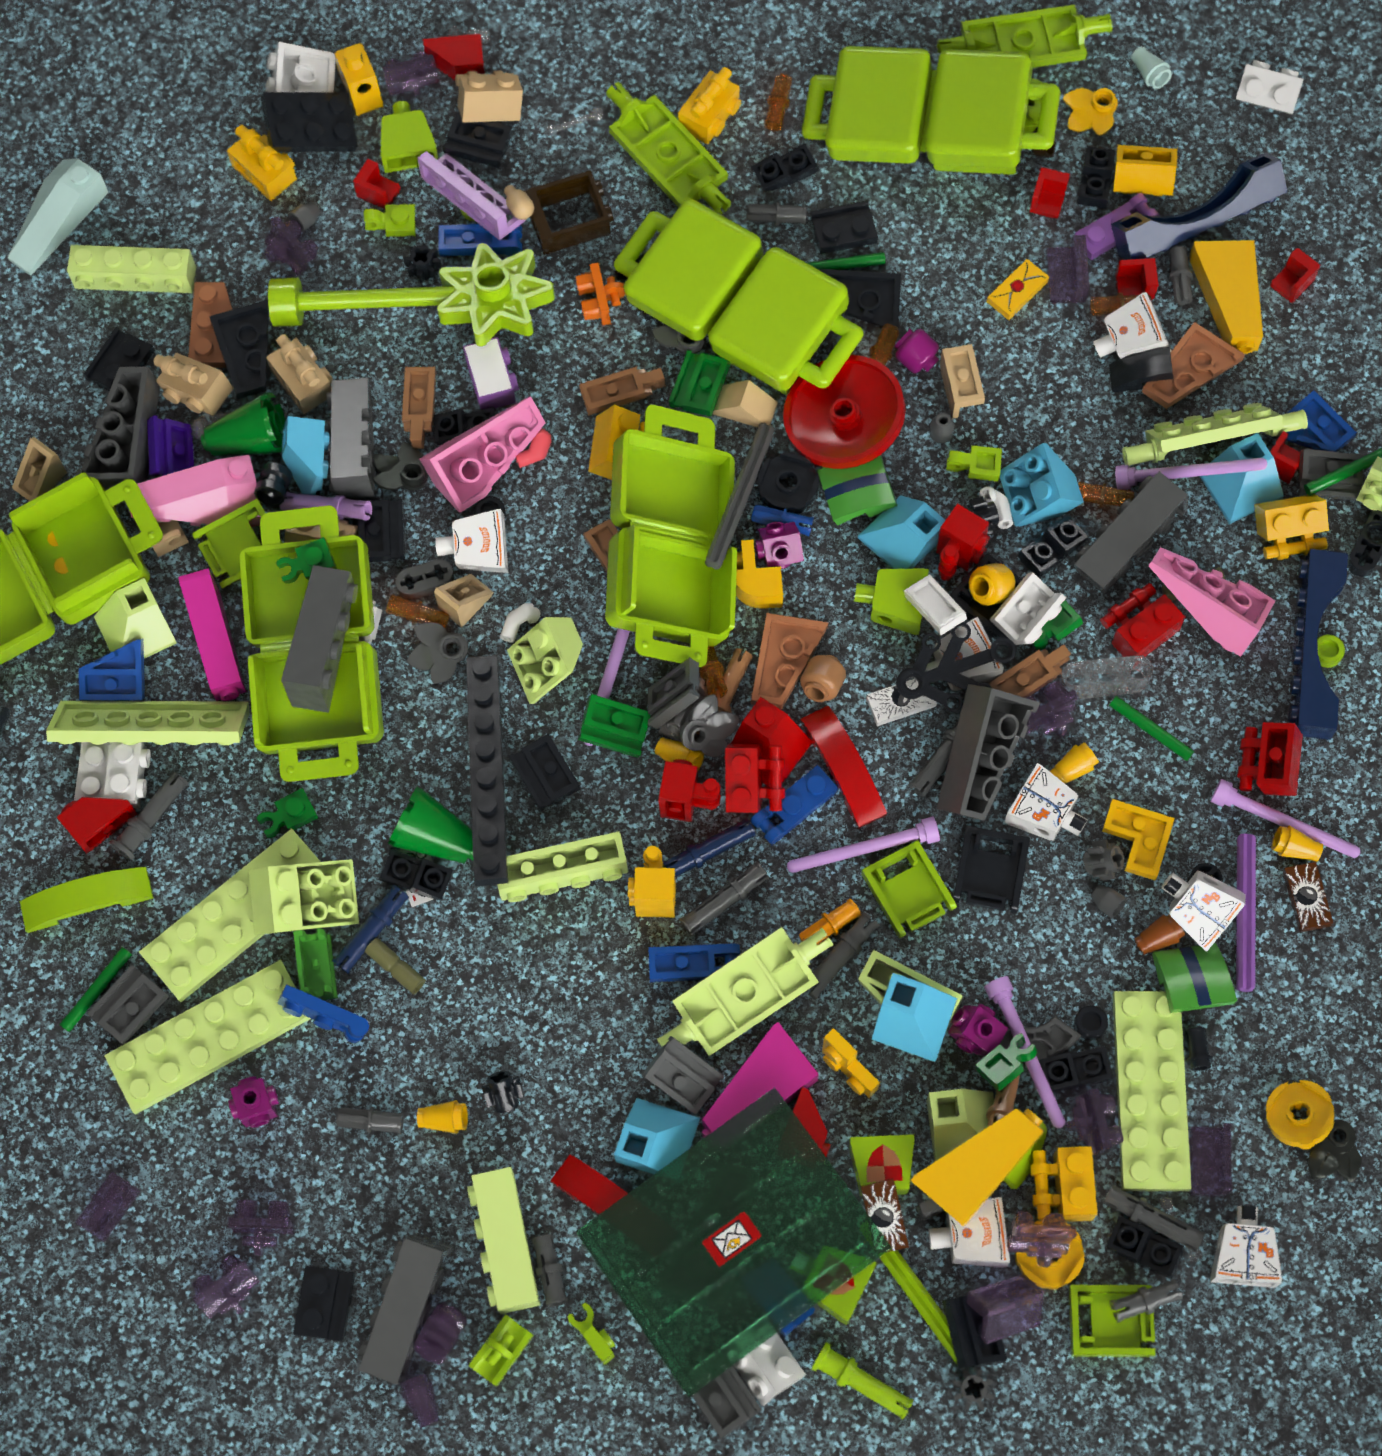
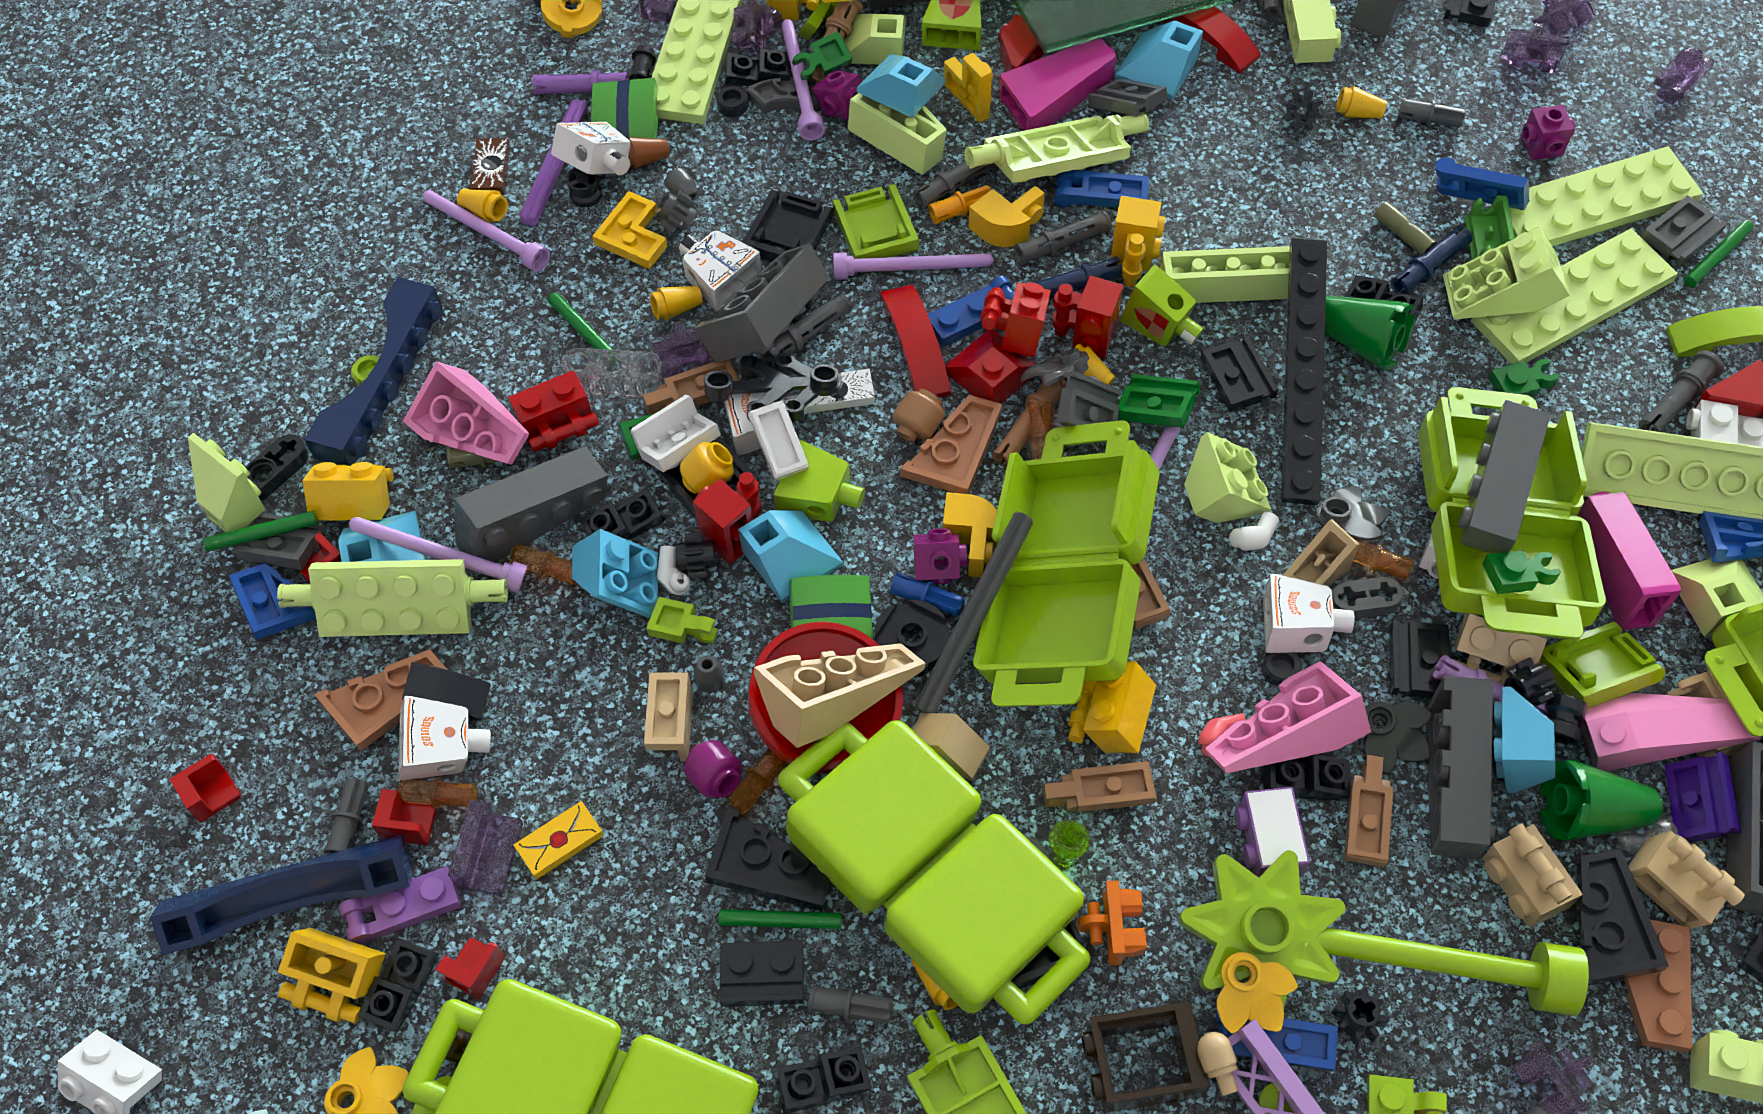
camera: 170 degrees left, 10 degrees down
(298, 494) = (1531, 681): none -> black gear
(497, 247) = (1257, 997): none -> yellow plate
(621, 812) = (1161, 309): none -> lime torso
(640, 333) = (1068, 842): none -> clear neon green cone
(699, 383) = (1002, 775): green plate -> none
(782, 901) = (1005, 222): none -> yellow brick
(840, 401) = (825, 693): none -> tan wedge
(1231, 289) = (292, 781): yellow slope -> none
(1241, 1016) = (572, 82): none -> medium lavender pin
(1278, 759) = (466, 266): red brick -> none

